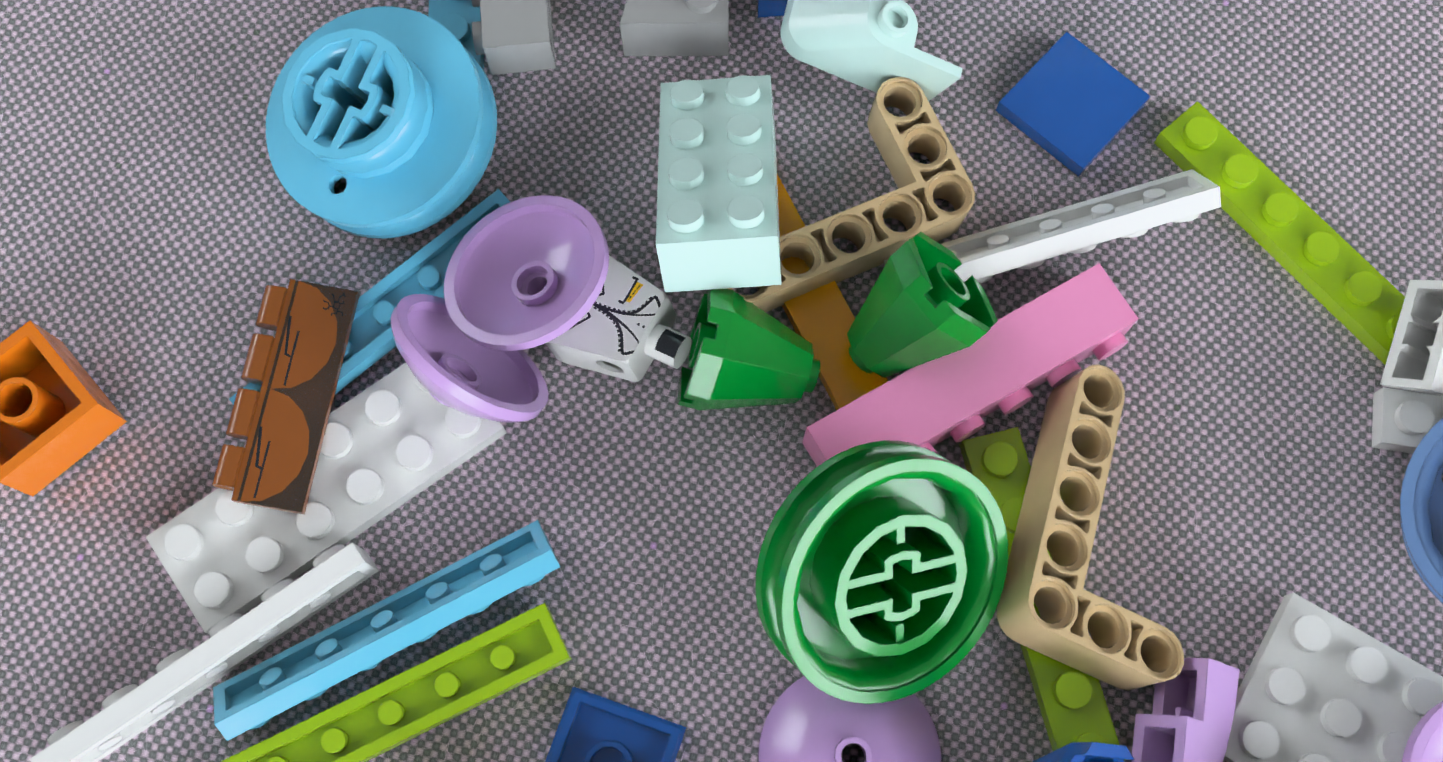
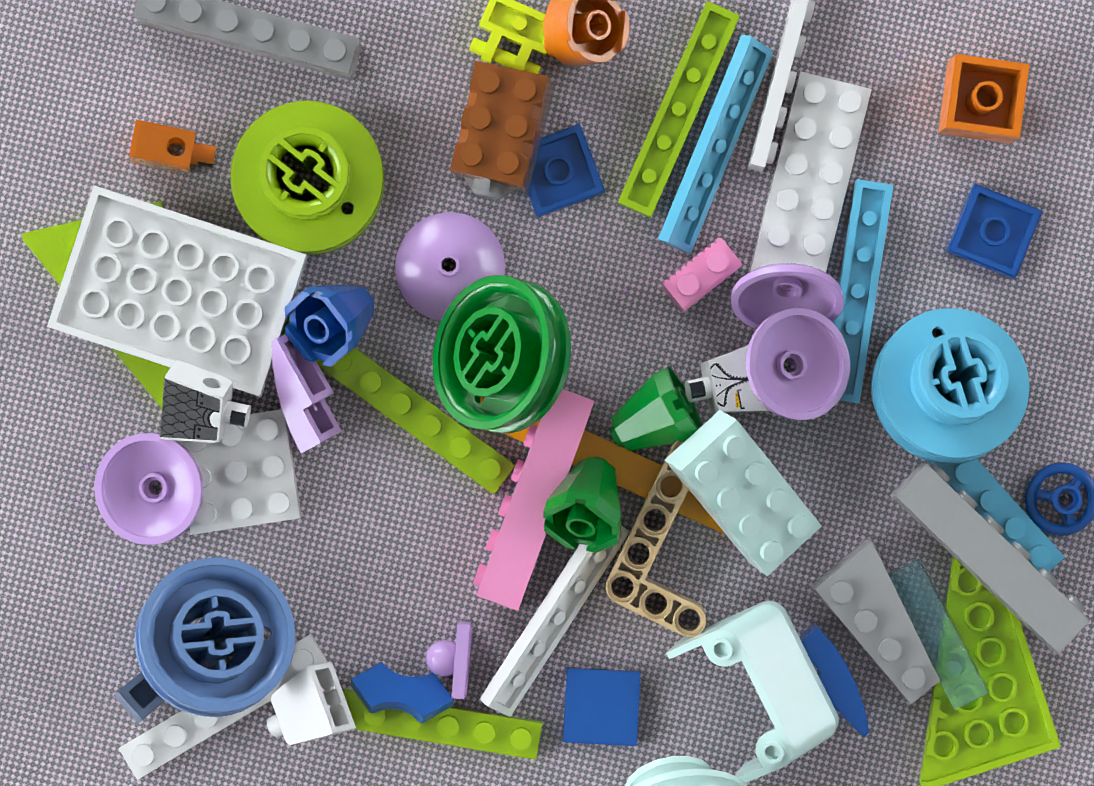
camera: 140 degrees right, 15 degrees up
(175, 261) = (994, 231): none -> blue tile
(297, 391) = (856, 206): dark orange windscreen -> none
(546, 479) = (701, 274): none -> bright pink brick
(1062, 516) = (427, 452): tan beam -> none
(1222, 283) = (450, 658): none -> lavender tile
(1329, 305) = (385, 689): none -> blue tile

